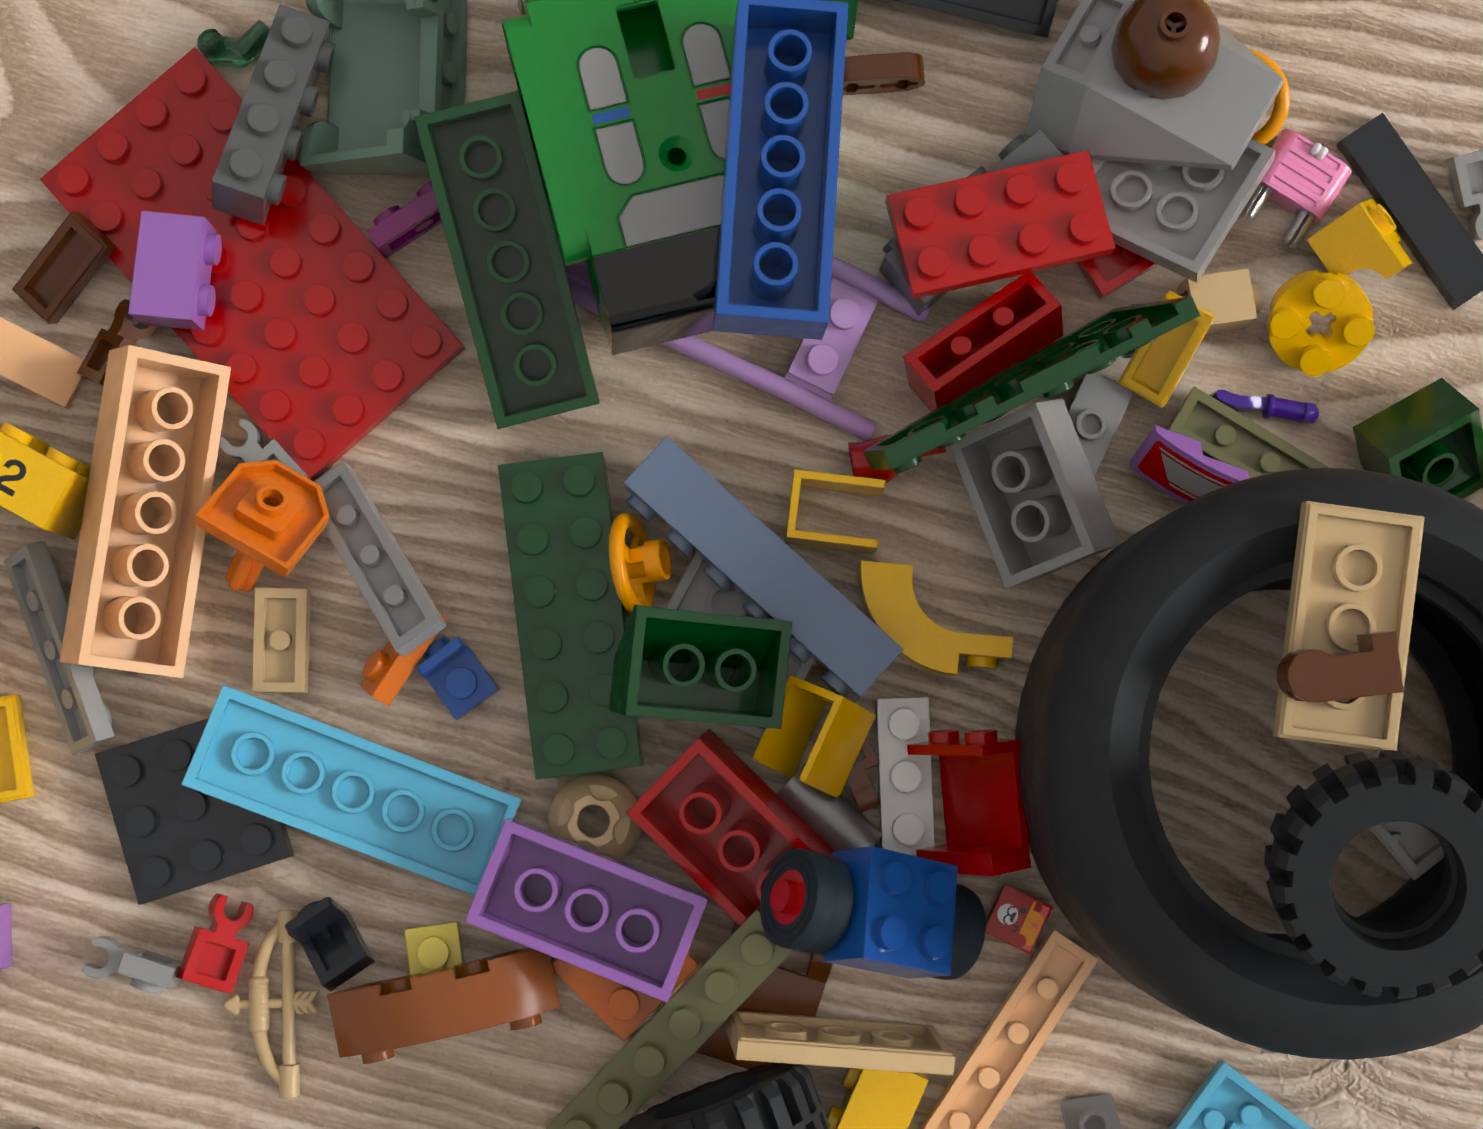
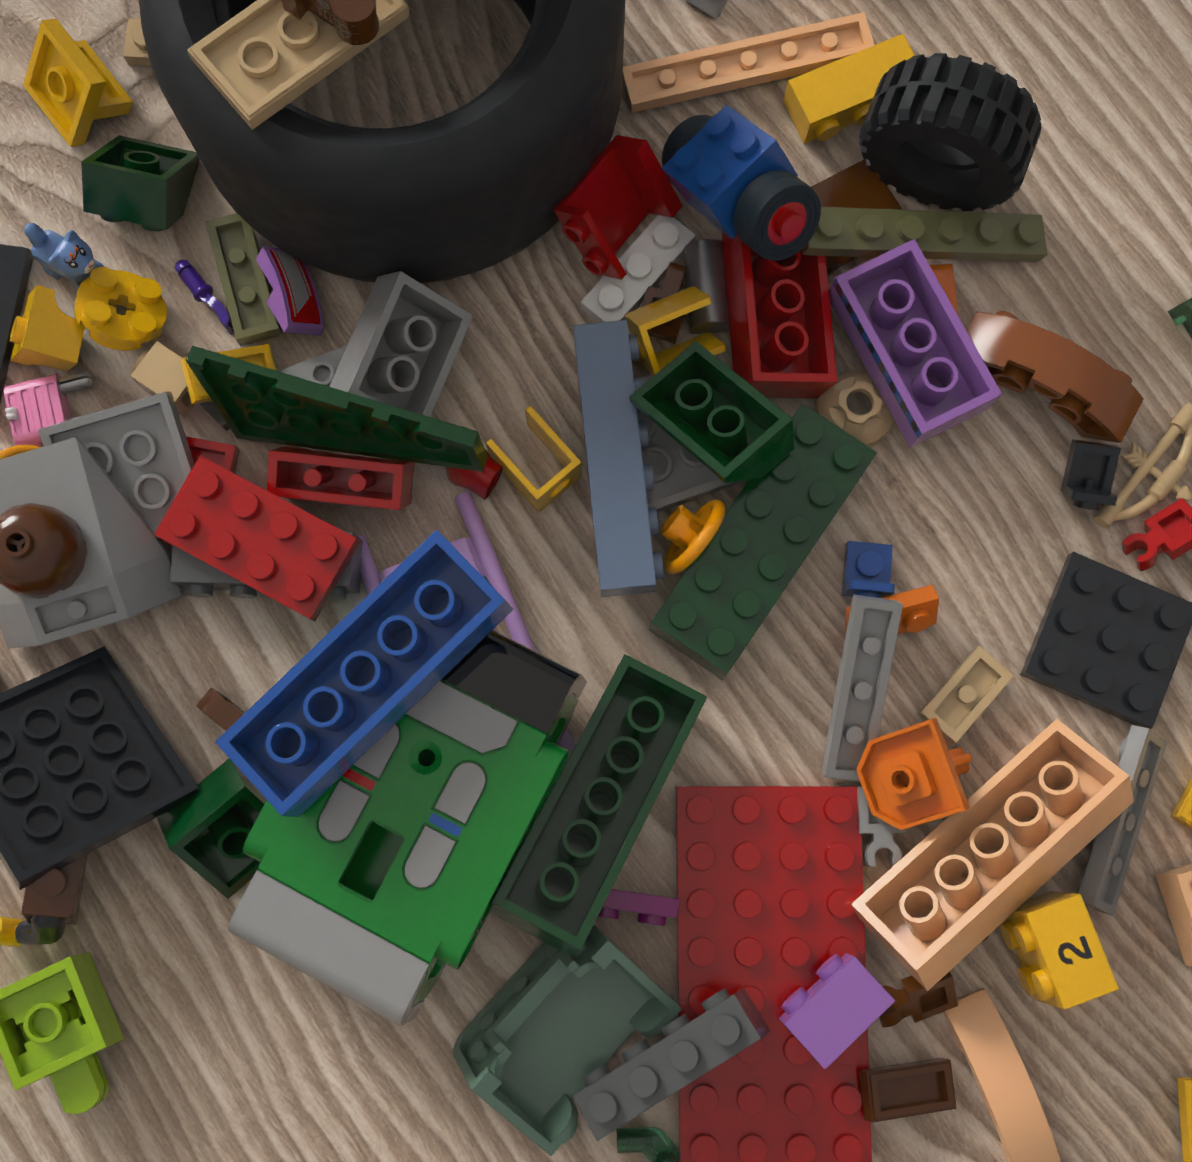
camera: 135 degrees left, 5 degrees down
(348, 790) = (1002, 554): medium azure plate -> none
(434, 947) = (1025, 418): light yellow plate -> none
(838, 1043) = (824, 139): tan tile -> none
(892, 606) = (552, 372): yellow arch -> none
(1017, 918) = (648, 126): red tile -> none
(1414, 322) = (61, 255): none -> medium blue animal

